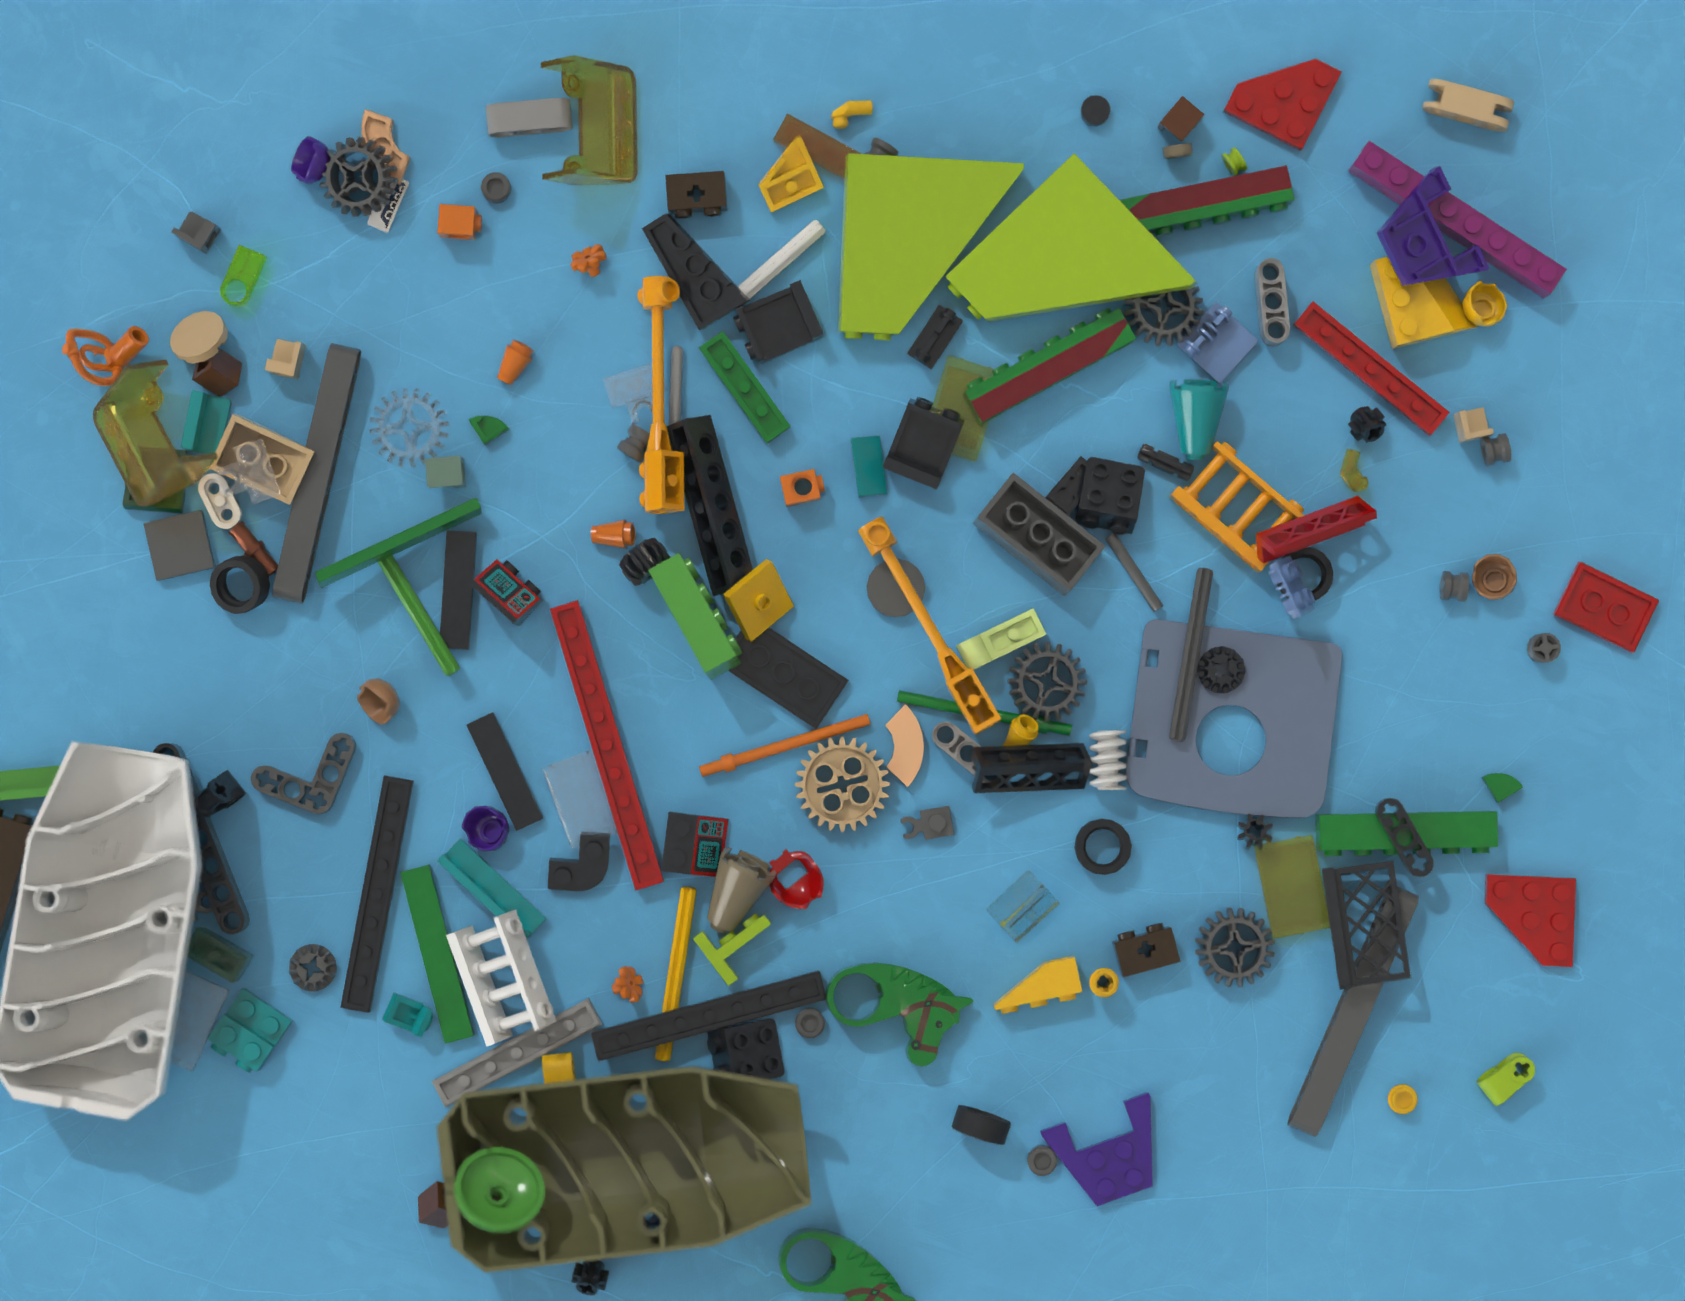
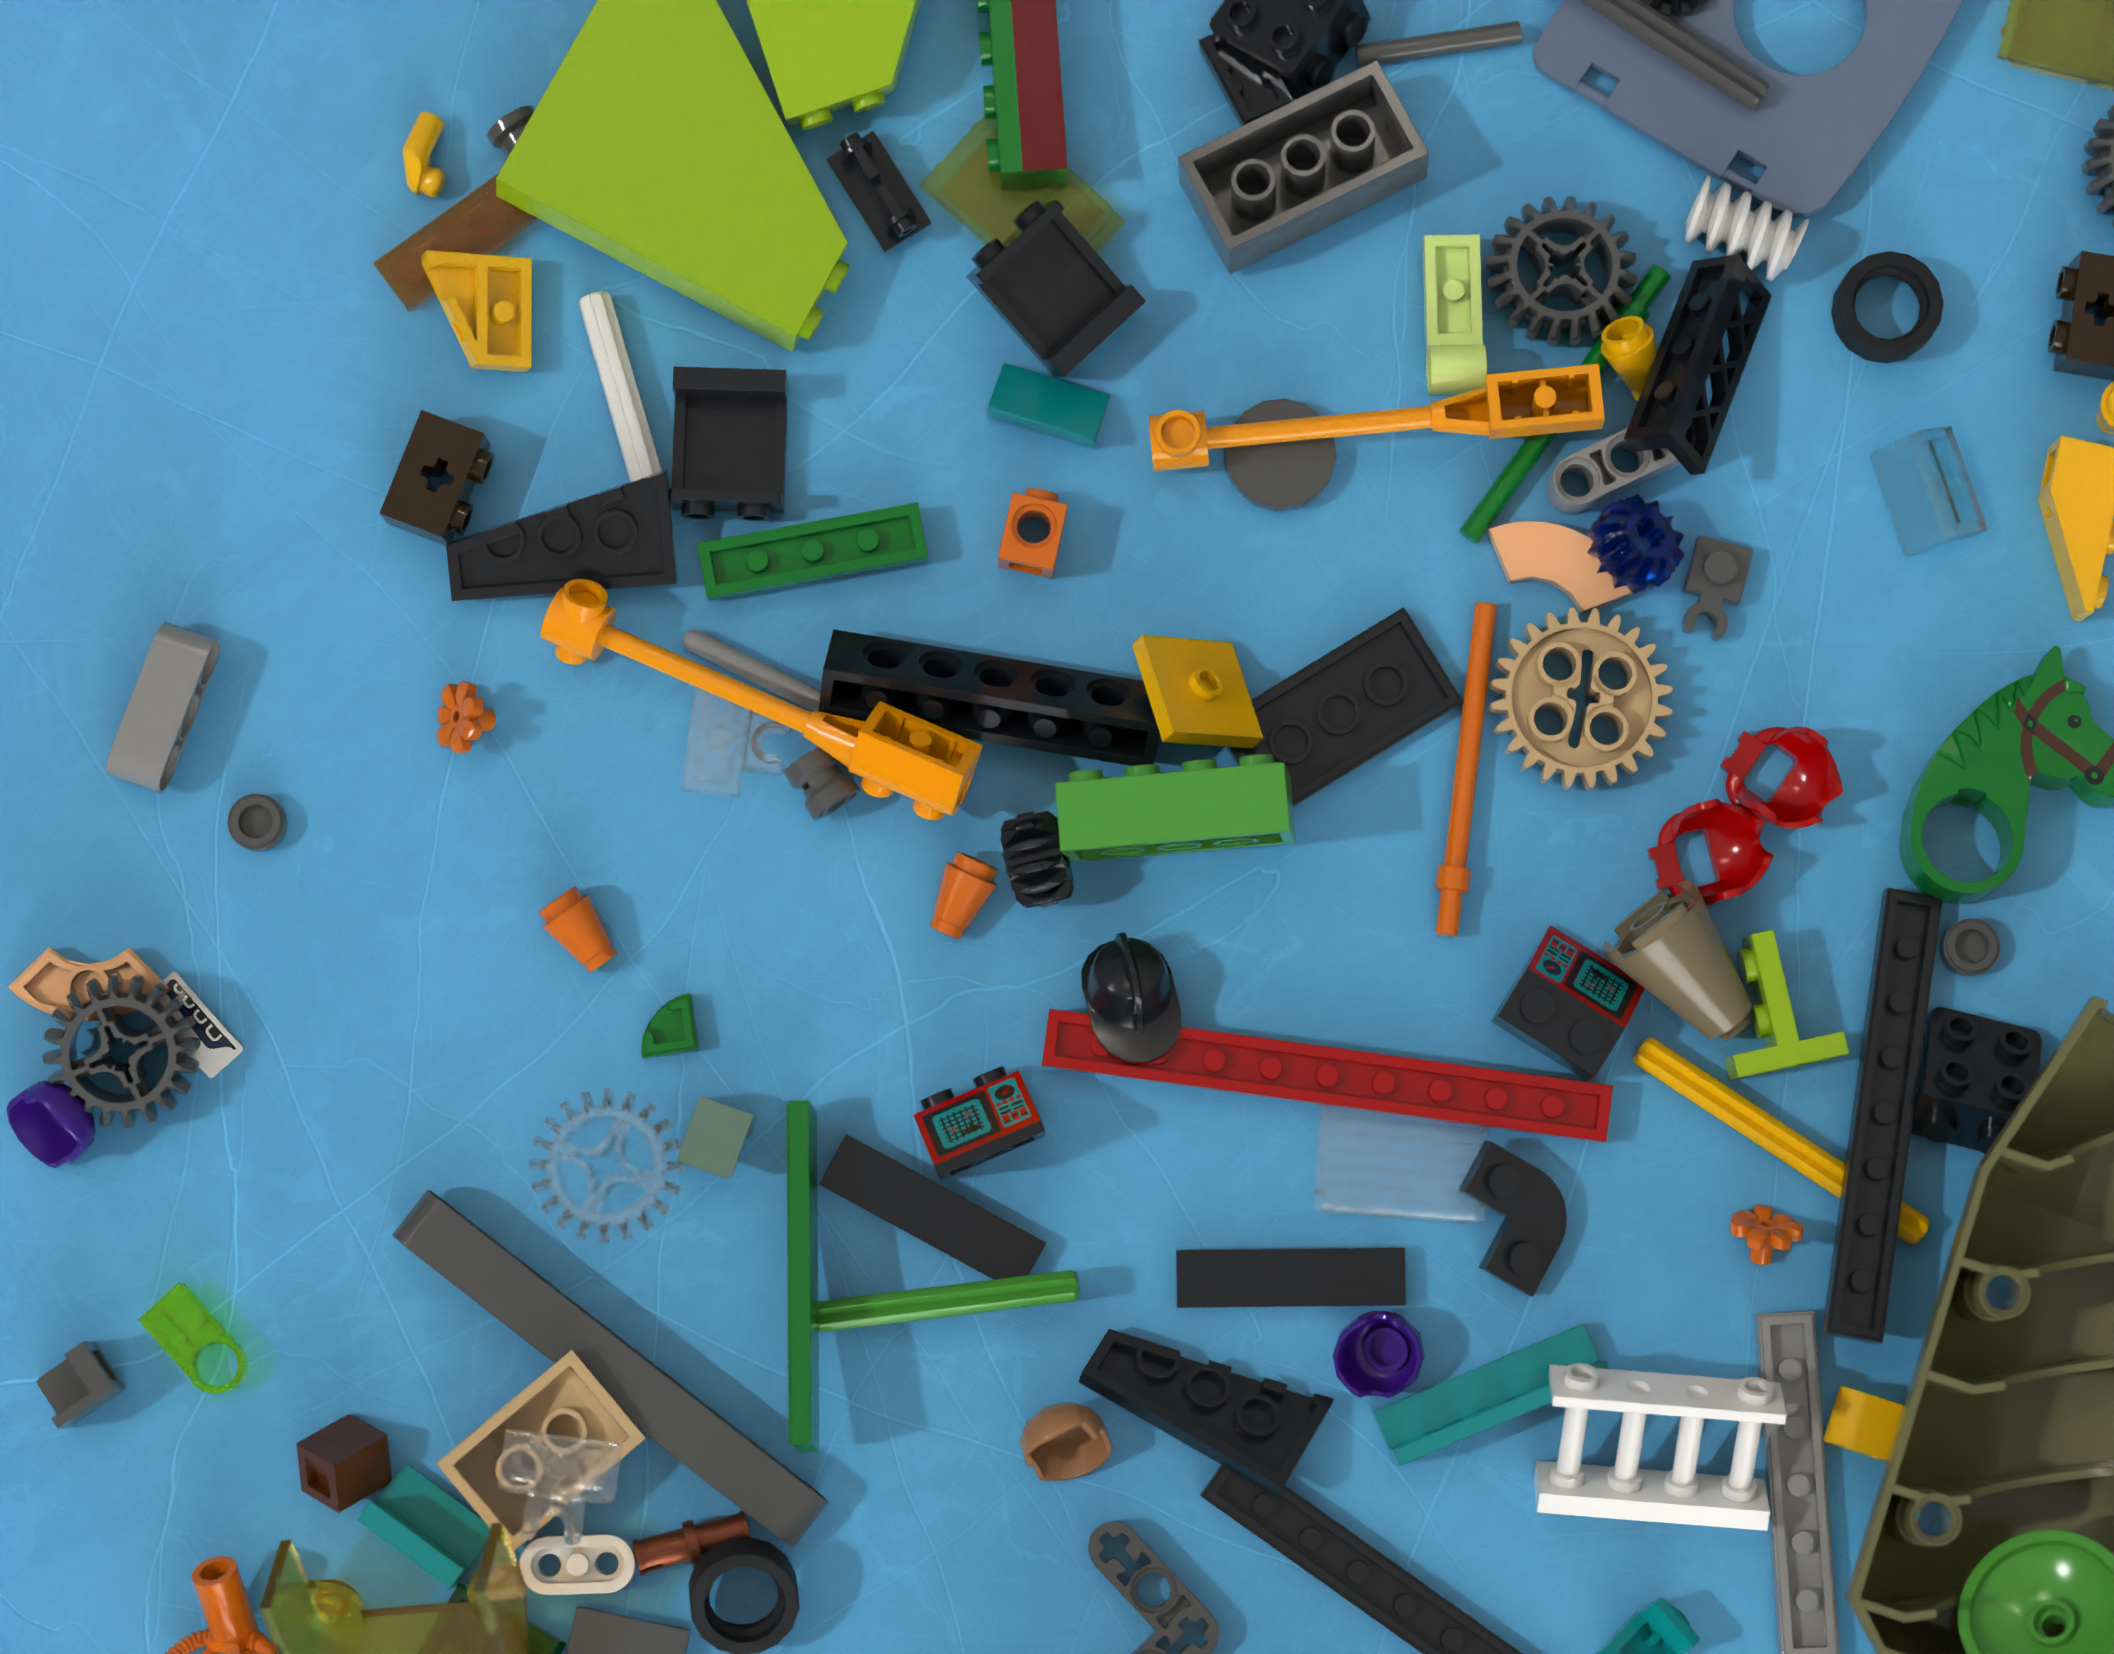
camera: 70 degrees left, 5 degrees down
(198, 337) = (267, 1466): tan tile -> none
(286, 359) = (381, 1329): tan panel -> none
(425, 768) = (1225, 1416): none -> black wing
(437, 954) = (1559, 1546): green tile -> none
(458, 222) = (287, 911): orange brick -> none
(600, 636) = (1131, 999): none -> black piece
(605, 122) = (232, 579): clear yellow windscreen -> none
(847, 910) = (1805, 788): none -> red helmet
(928, 776) = (1635, 544): none -> clear blue gear
(1259, 825) = (1965, 29): black gear -> none

